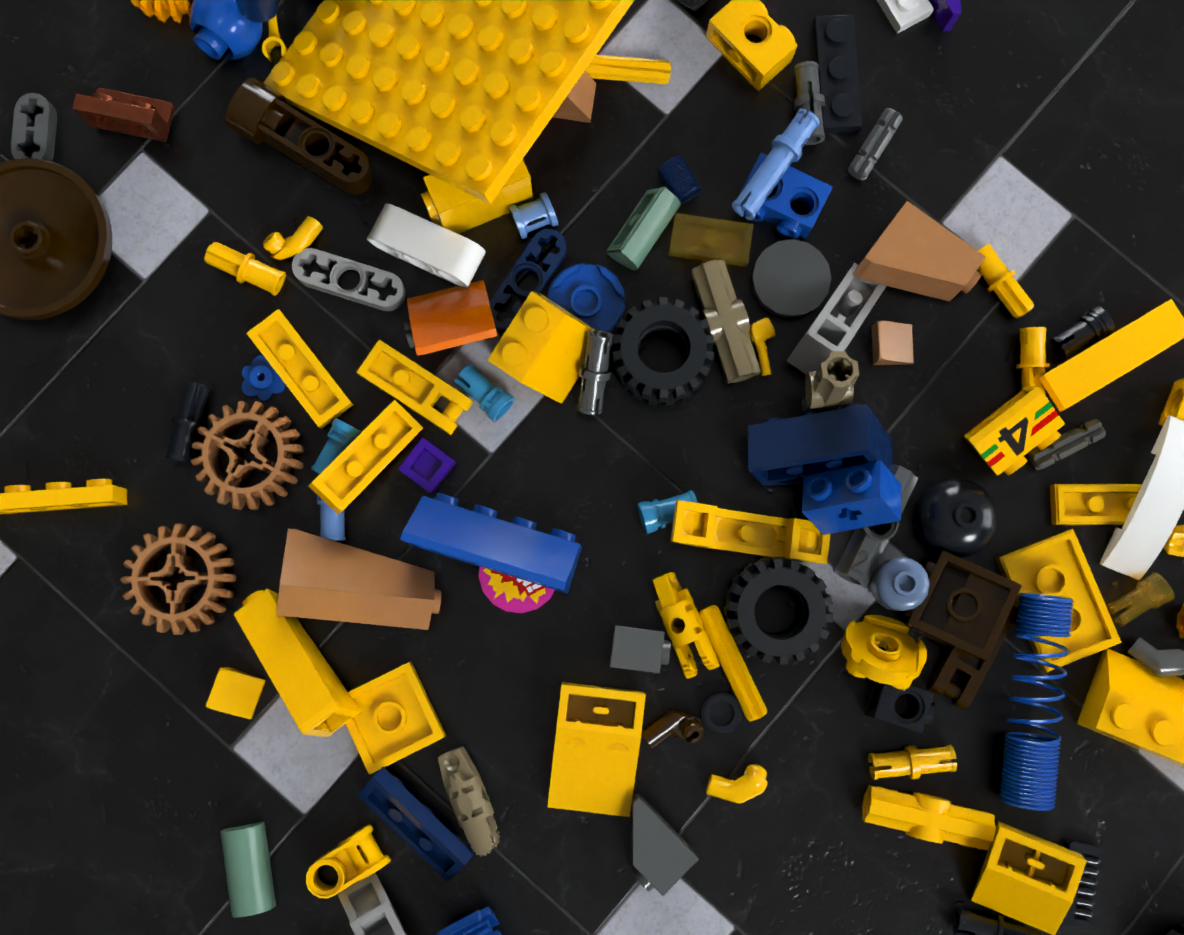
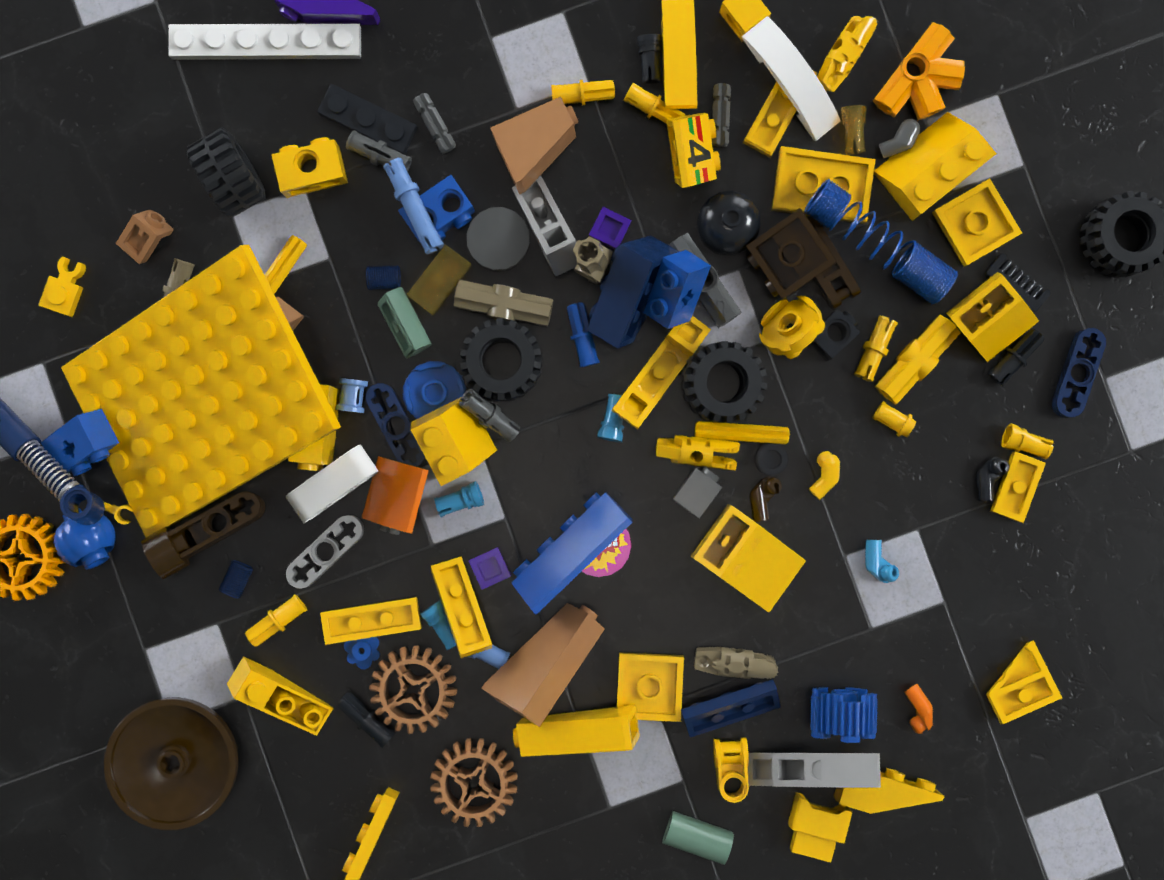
camera: 55 degrees left, 5 degrees up
(29, 132) = (85, 726): dark grey beam -> none
(126, 113) = (114, 645): copper bracket -> none
(162, 314) = (277, 696): none -> yellow slope
(235, 692) = (574, 784): yellow slope -> none
(267, 200) = (246, 574): none -> dark blue piece
(292, 245) = (278, 576): yellow arm -> none
(413, 386) = (427, 547): yellow plate -> none
(657, 849) = (837, 553): dark grey slope -> none
(668, 907) = (877, 565): none -> dark azure arm
(737, 426) = (583, 338): none -> blue axle
(759, 333) = (524, 281): yellow hand -> none
(845, 829) = (894, 419): none -> yellow pin
(875, 390) = (610, 228): none -> dark purple plate
(892, 343) = (583, 194): slope -> none
(899, 584) = (752, 288): sand blue head -> none
(1120, 798) = (976, 222): none -> yellow plate

